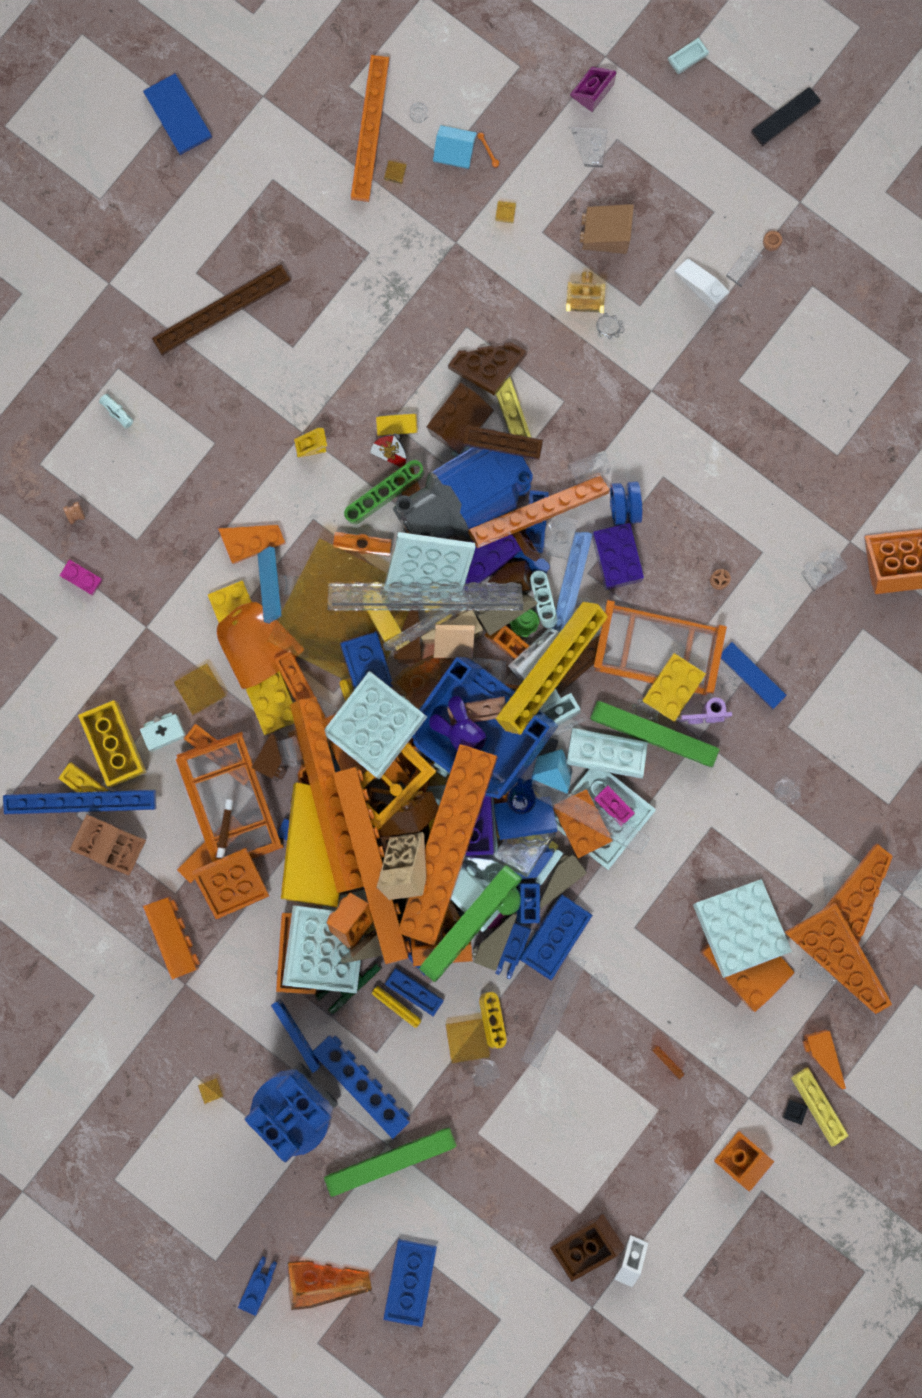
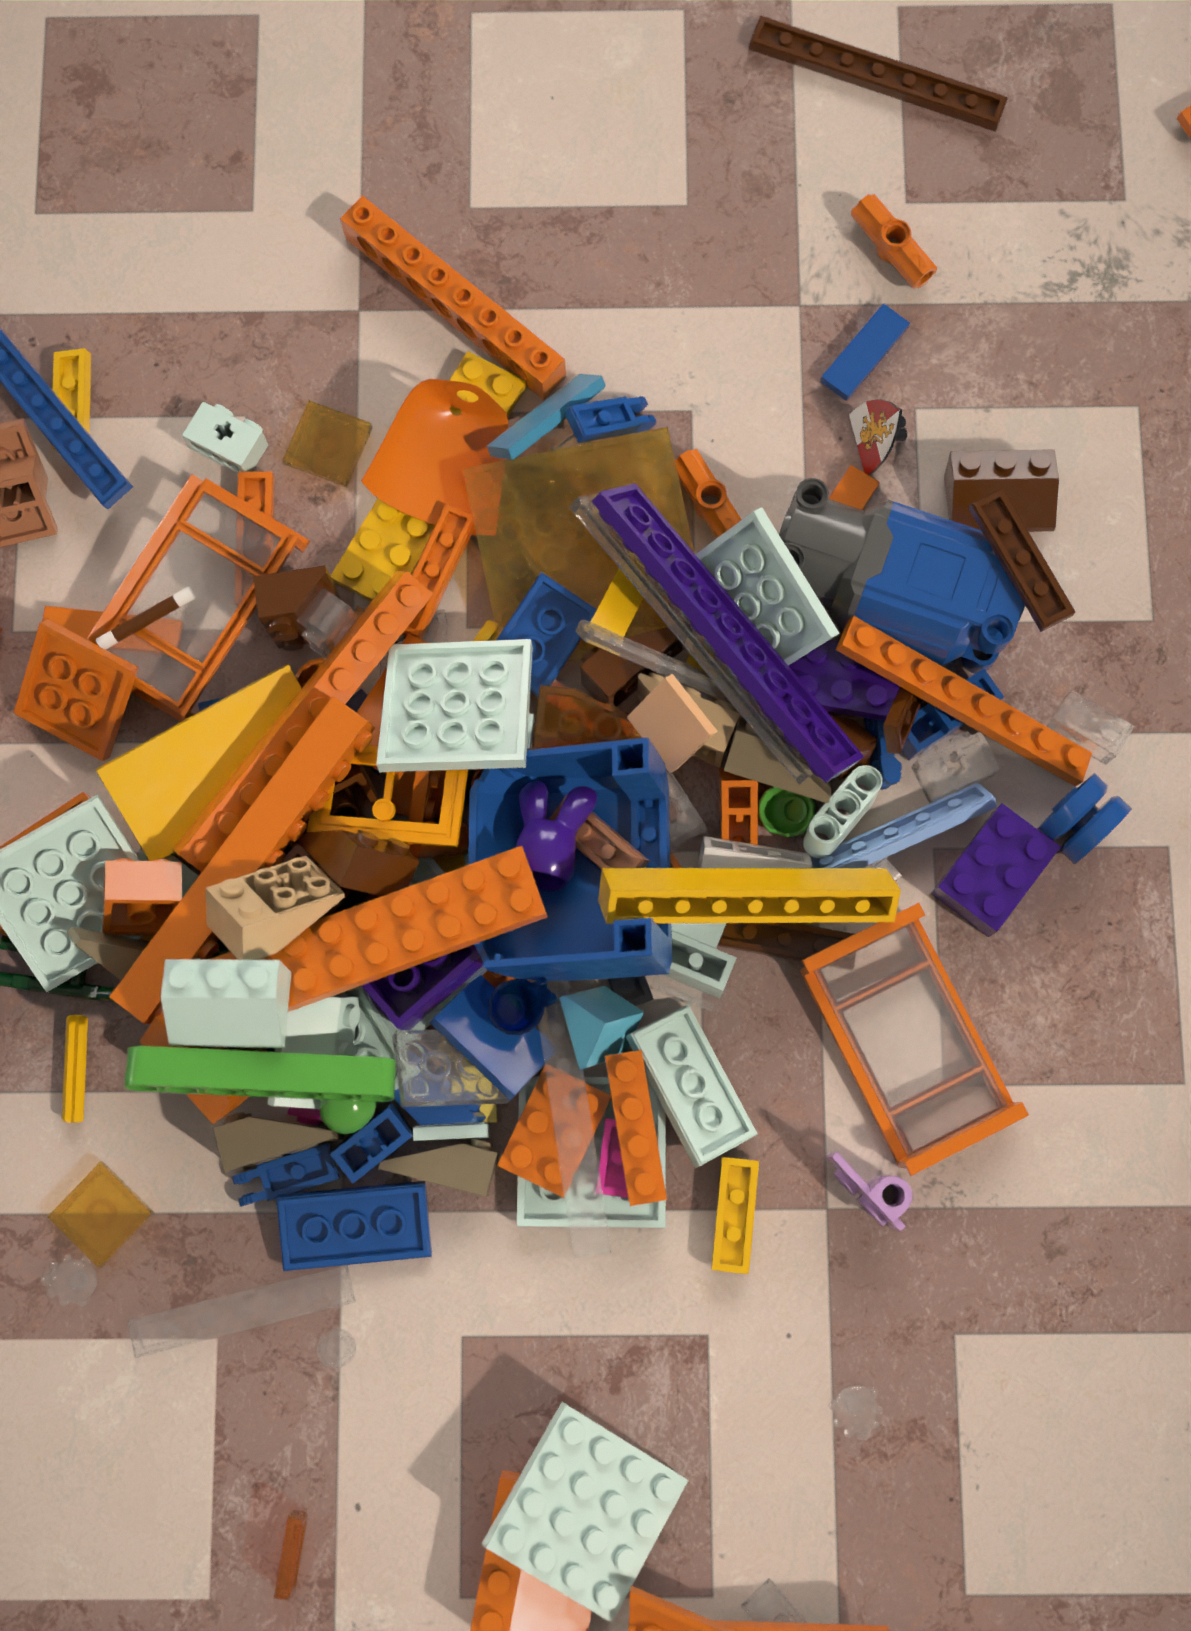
camera: 60 degrees right, 5 degrees down
(74, 512) = (439, 98): nougat wheel -> none
(81, 577) = (358, 172): dark pink plate -> none
(112, 743) = (155, 382): yellow brick -> none
(116, 411) = (623, 47): light aqua pin -> none
(177, 581) = (453, 297): none -> orange brick
(249, 541) = (592, 350): orange wing -> none
(291, 559) = (608, 418): none -> blue hinge
(295, 369) = (881, 226): none -> orange piece
(311, 443) = (795, 324): yellow slope -> none
(348, 423) = (864, 352): none -> blue tile
(374, 493) = (797, 458): bright green beam -> none
(397, 424) = (923, 418): yellow slope -> none
(414, 992) = (115, 1104): blue tile -> none
(432, 914) = (225, 1002): none -> light aqua slope
(434, 586) = (728, 631): none -> dark purple plate
(488, 365) = (1111, 474): reddish brown plate -> none
(495, 1005) = (132, 1243): yellow beam -> none
(512, 410) = (1083, 546): light yellow tile -> none
(608, 789) = (635, 1128): none -> orange plate
(644, 711) = (803, 1093): clear piece -> none
(654, 734) = (778, 1137): bright green beam -> none
(673, 687) = (871, 1107): yellow plate -> none
(673, 777) = (735, 1215): none -> yellow plate
(721, 575) = (1097, 1047): nougat wheel -> none
(752, 675) = (987, 1216): blue tile -> none

